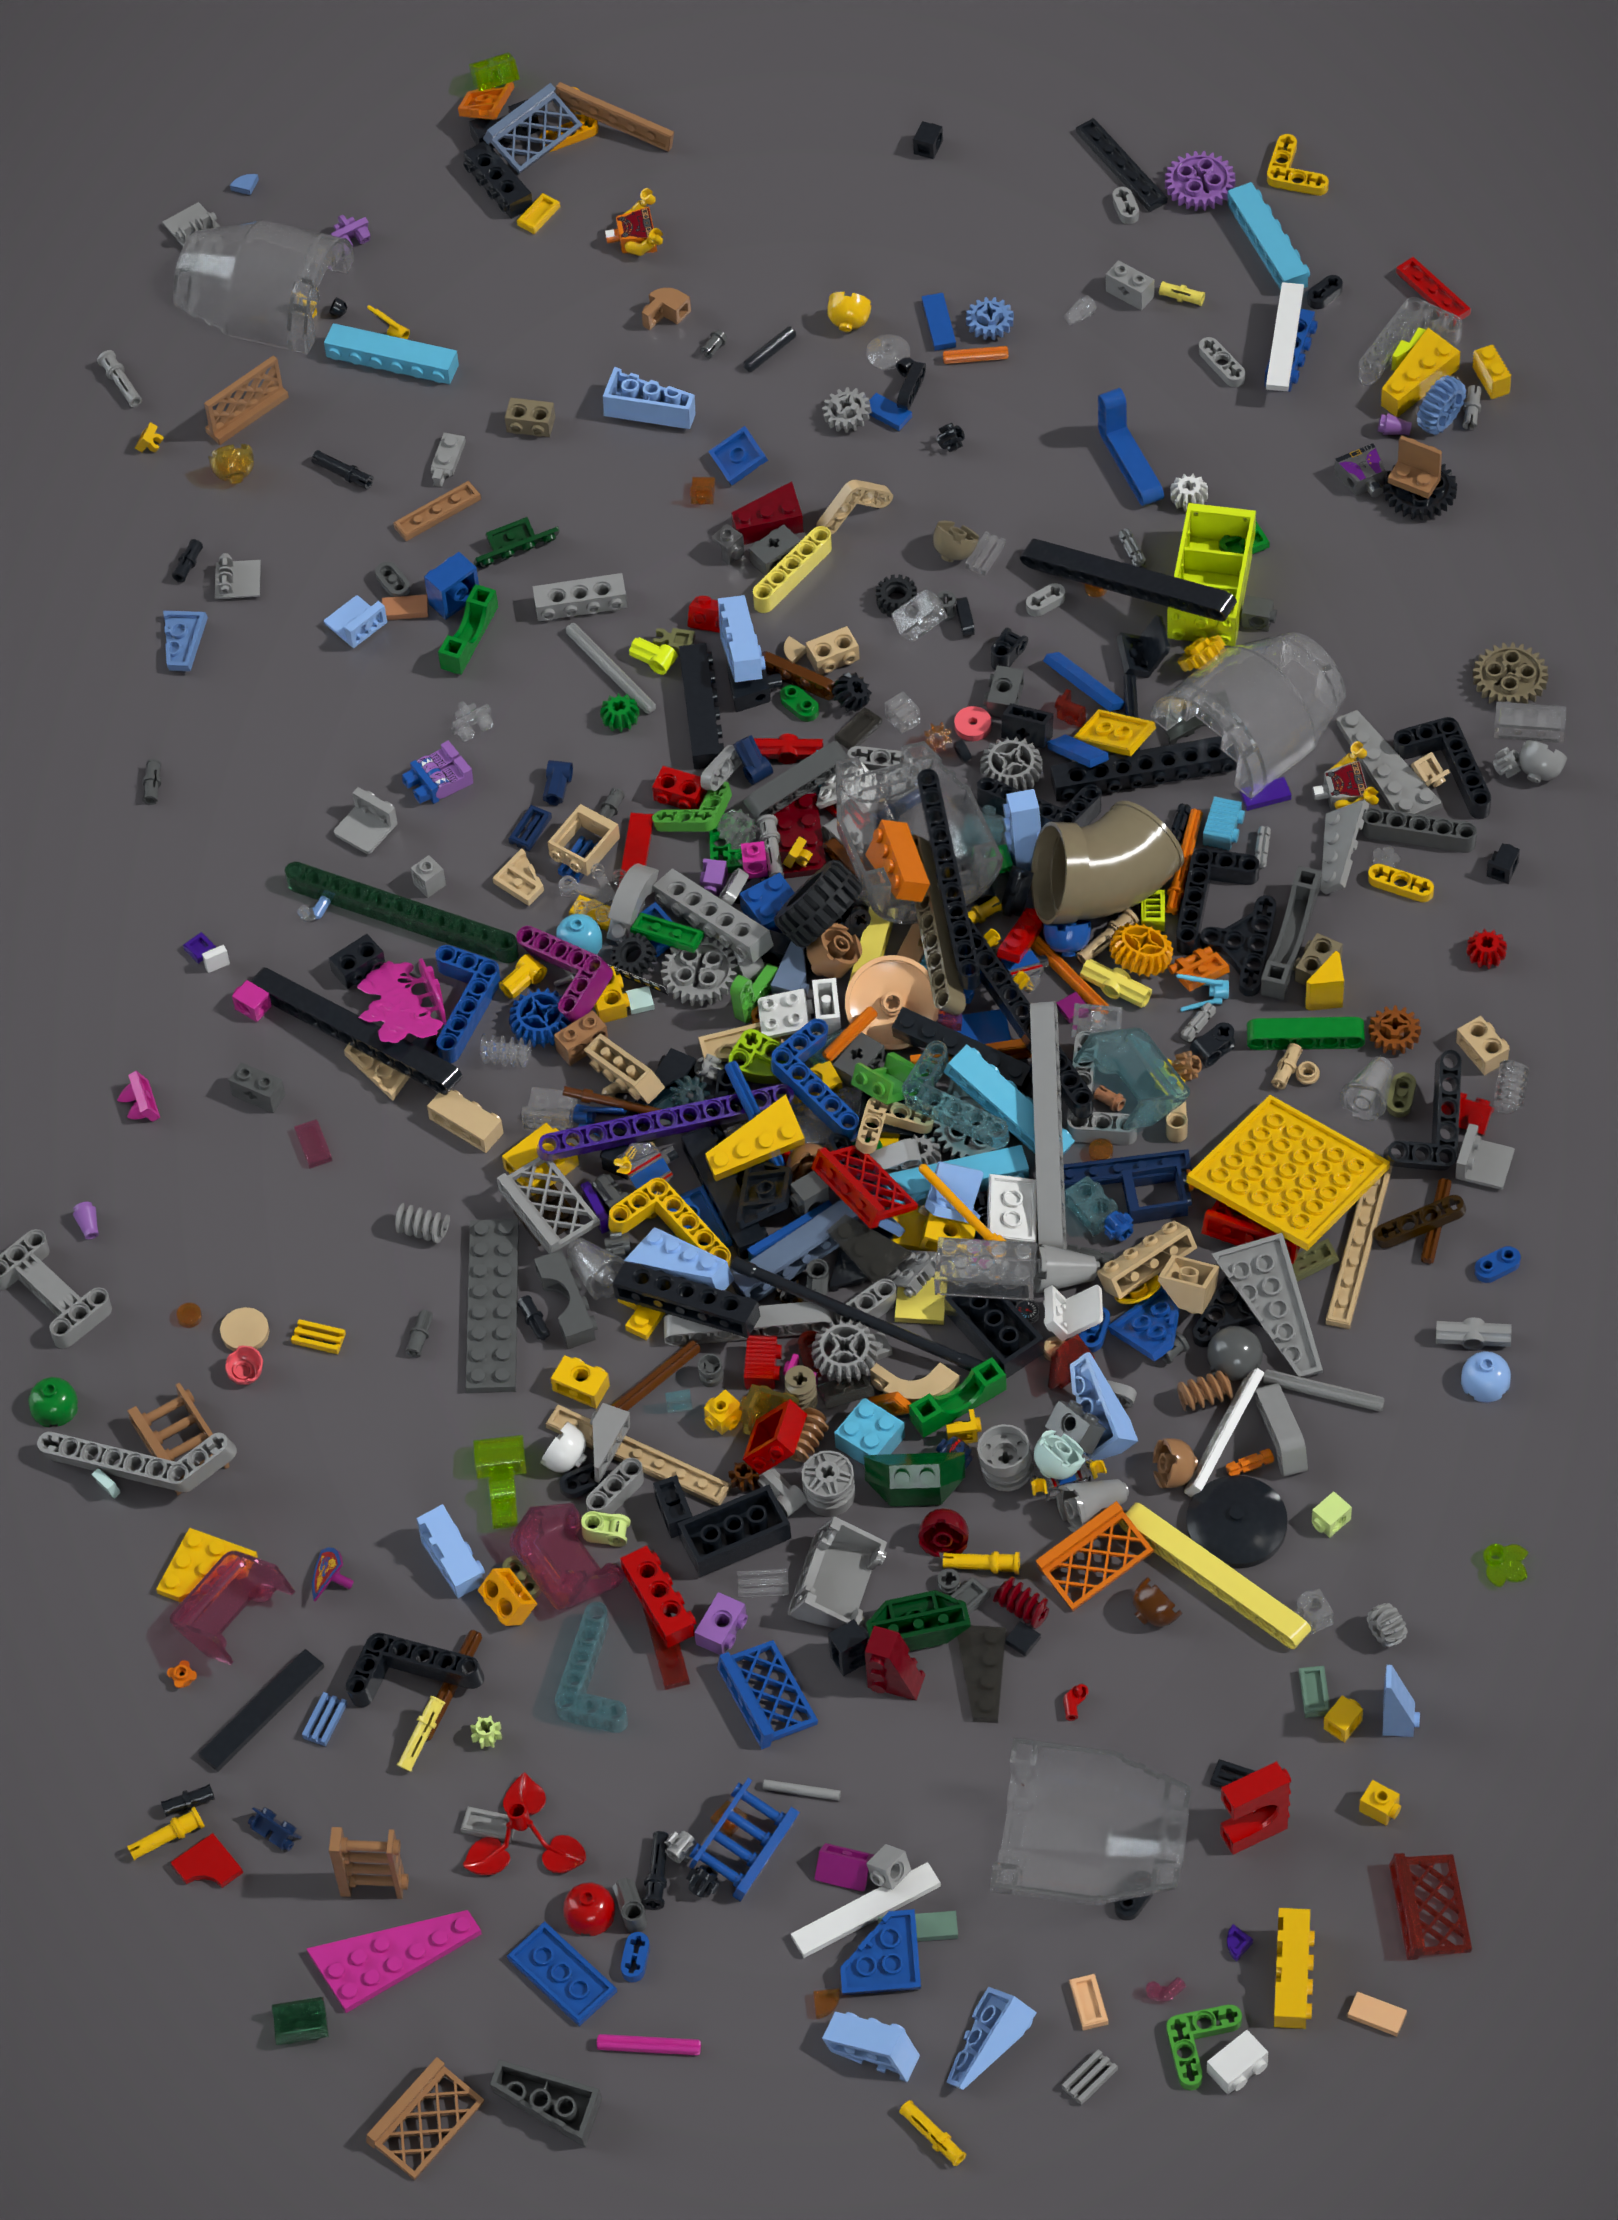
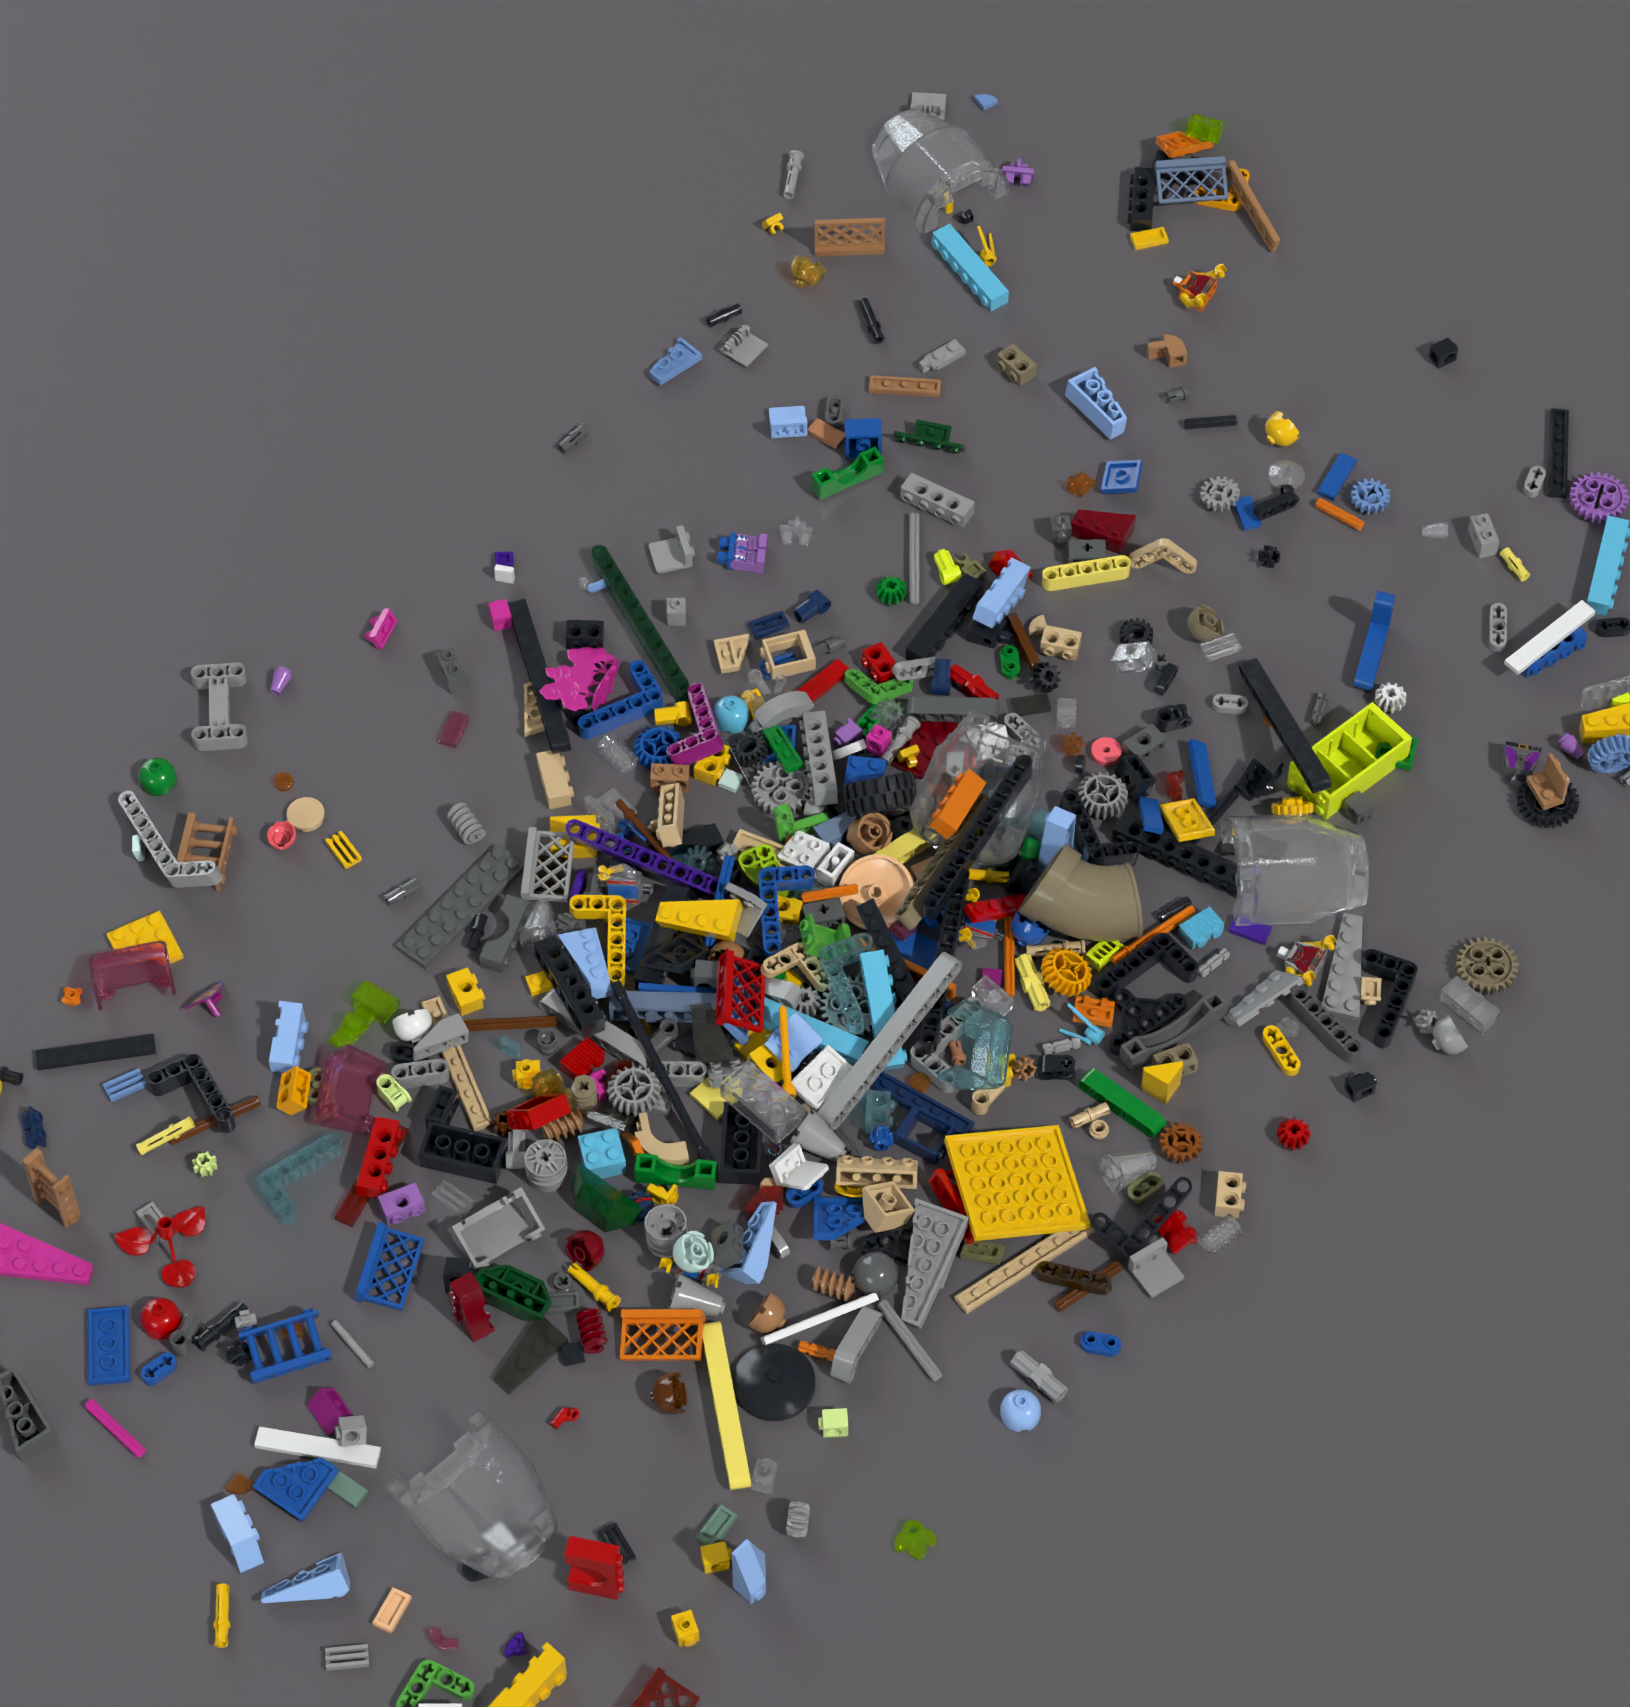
camera: 35 degrees right, 0 degrees up
(799, 1096) = (751, 911): none -> light grey bracket

